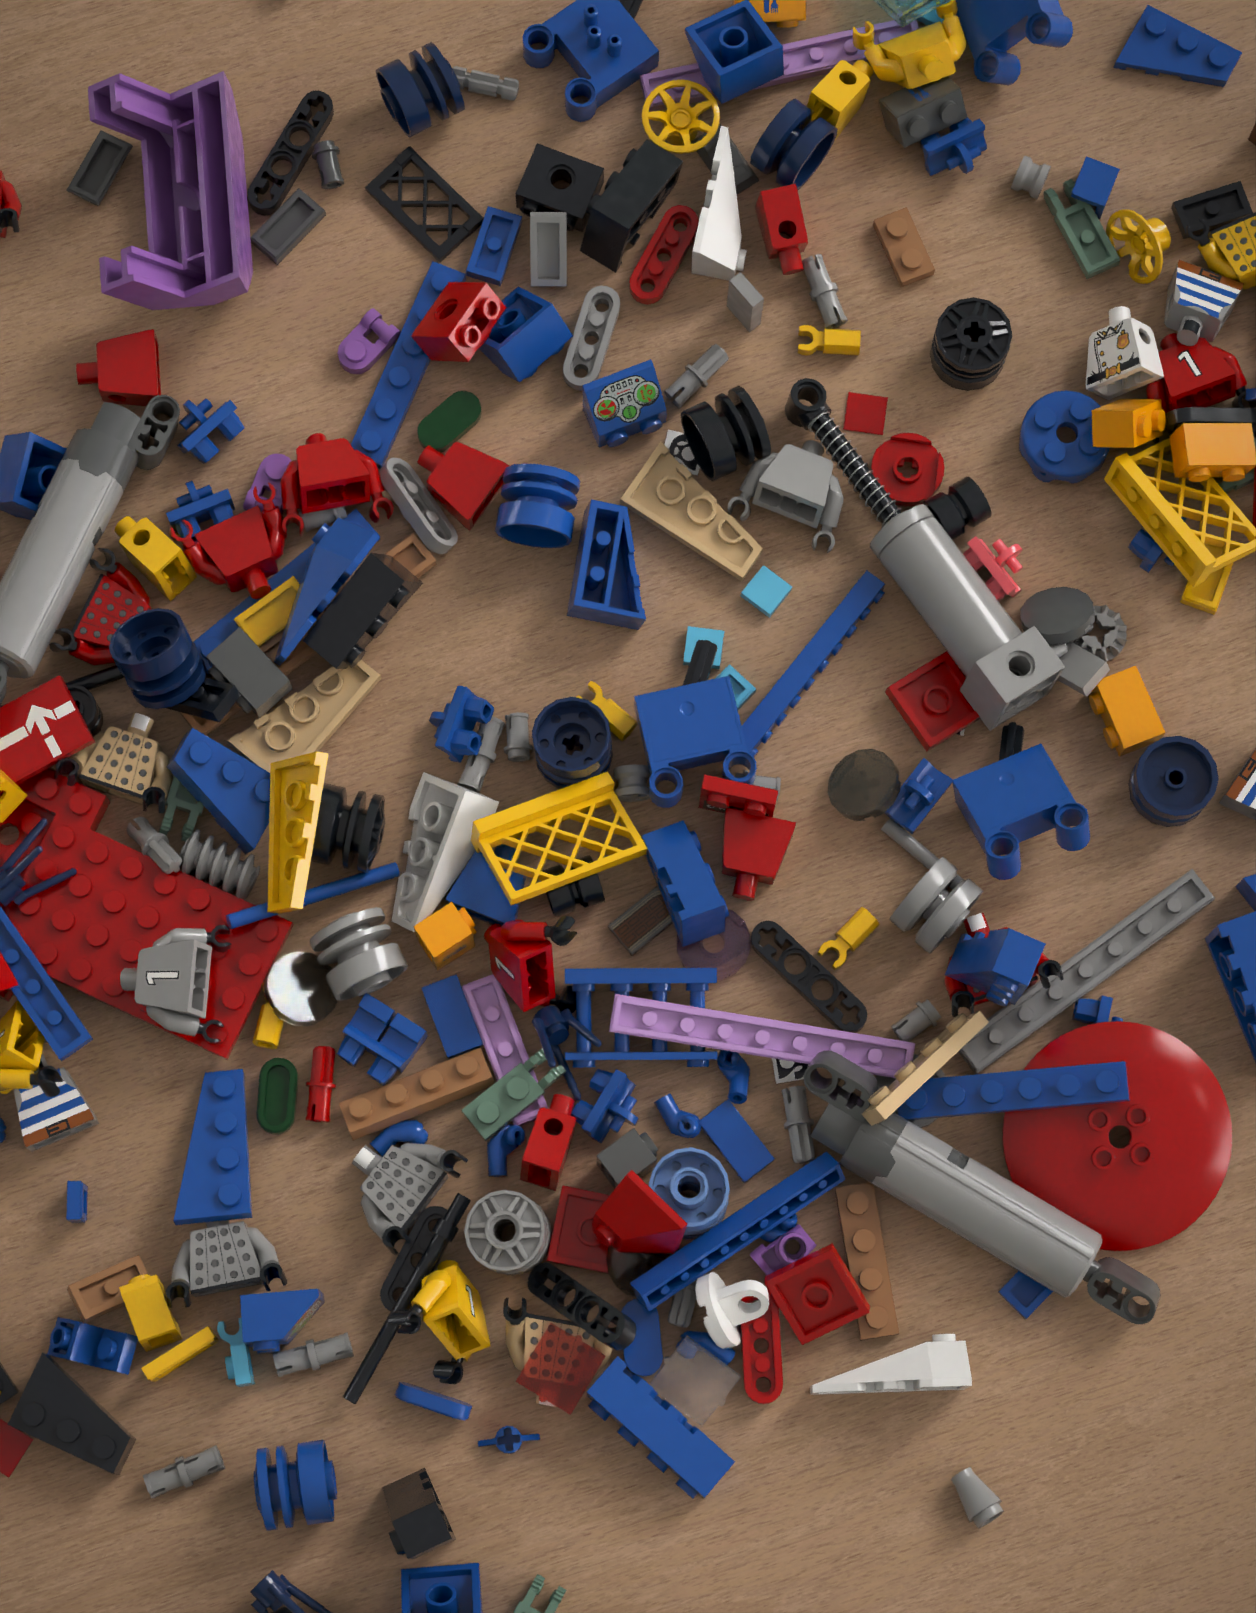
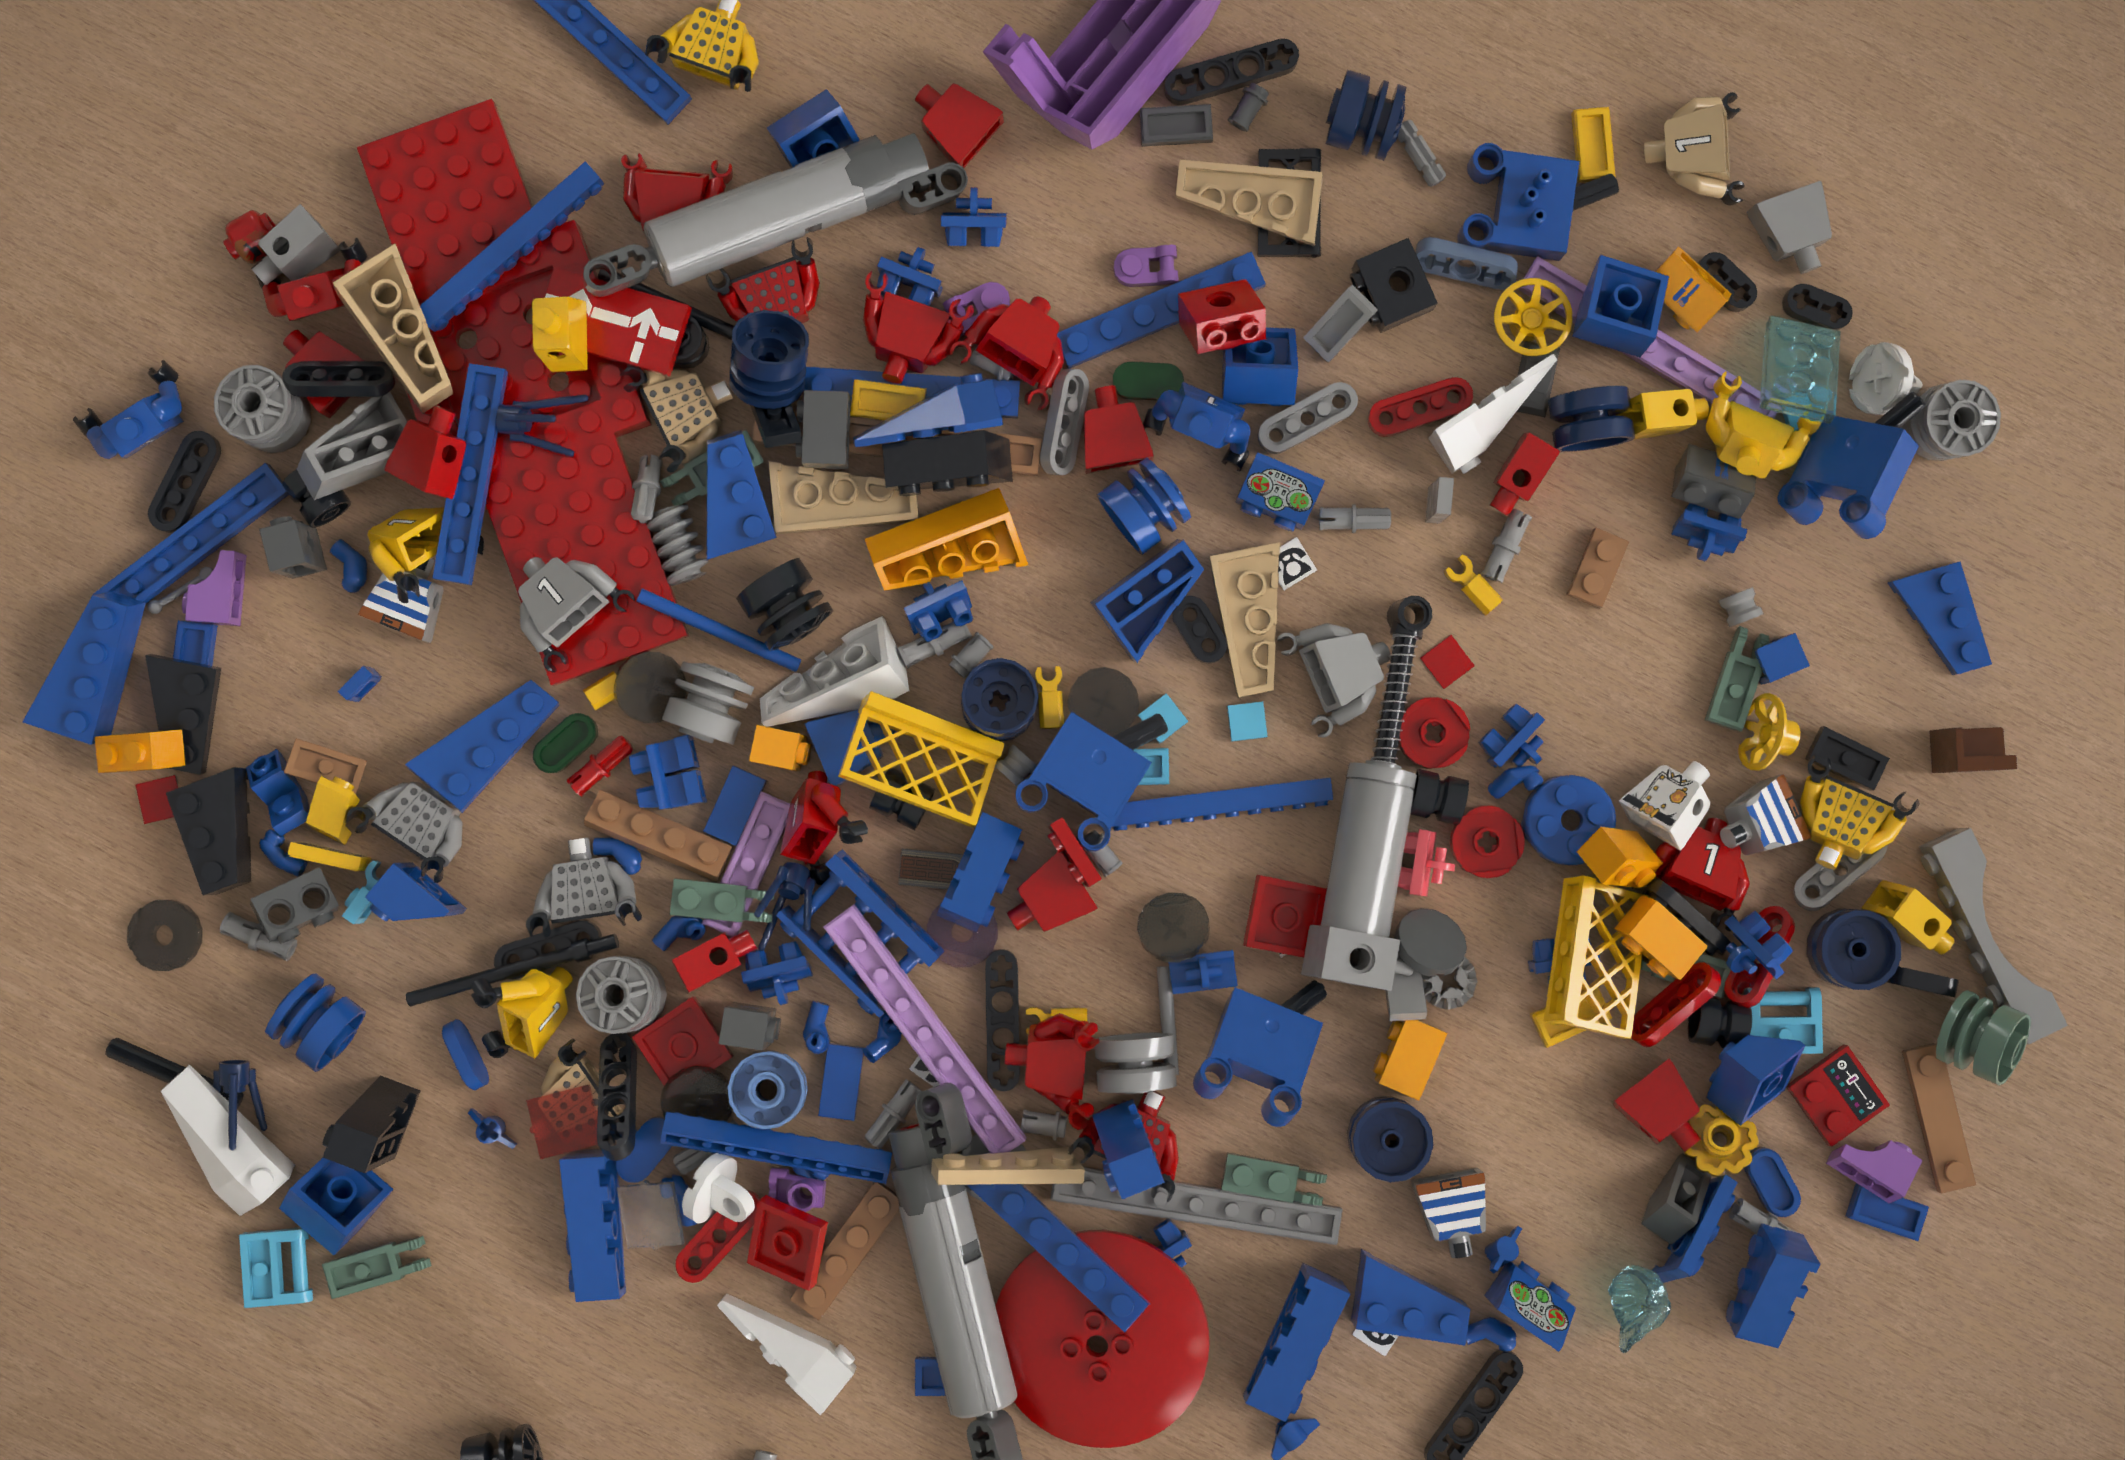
camera: 45 degrees right, 10 degrees up
(132, 1545) = (185, 929): none -> clear smoke tile
(138, 1395) = (278, 857): none -> blue arm
(155, 556) = (845, 279): yellow torso -> none
(185, 1413) = (290, 898): none -> dark grey brick
(293, 818) = (749, 567): yellow wing -> none
(313, 1355) = (418, 943): light grey pin -> none
(398, 217) = (1262, 196): none -> tan wing
(420, 670) = (947, 543): none -> light orange wedge
(494, 246) = (1306, 282): blue plate -> none
(517, 403) = (1204, 419): none -> blue torso
(609, 128) = (1480, 257): none -> sand blue beam
(628, 203) = (1433, 344): black wedge -> none
(638, 1220) = (707, 1077): red slope -> none
(644, 670) = (1104, 700): none -> clear smoke tile
(667, 555) = (1200, 629): none -> black plate
(728, 432) = (1327, 583): black wheel -> none
(879, 961) = (1057, 1063): none -> red torso
(964, 402) = (1524, 726): none -> blue hips
(968, 363) = (1549, 688): black wheel -> none
(995, 443) = (1513, 777): none -> blue arm
(1044, 506) = (1502, 855): none -> red plate
(1118, 900) = (1269, 1179): none -> sand green hinge

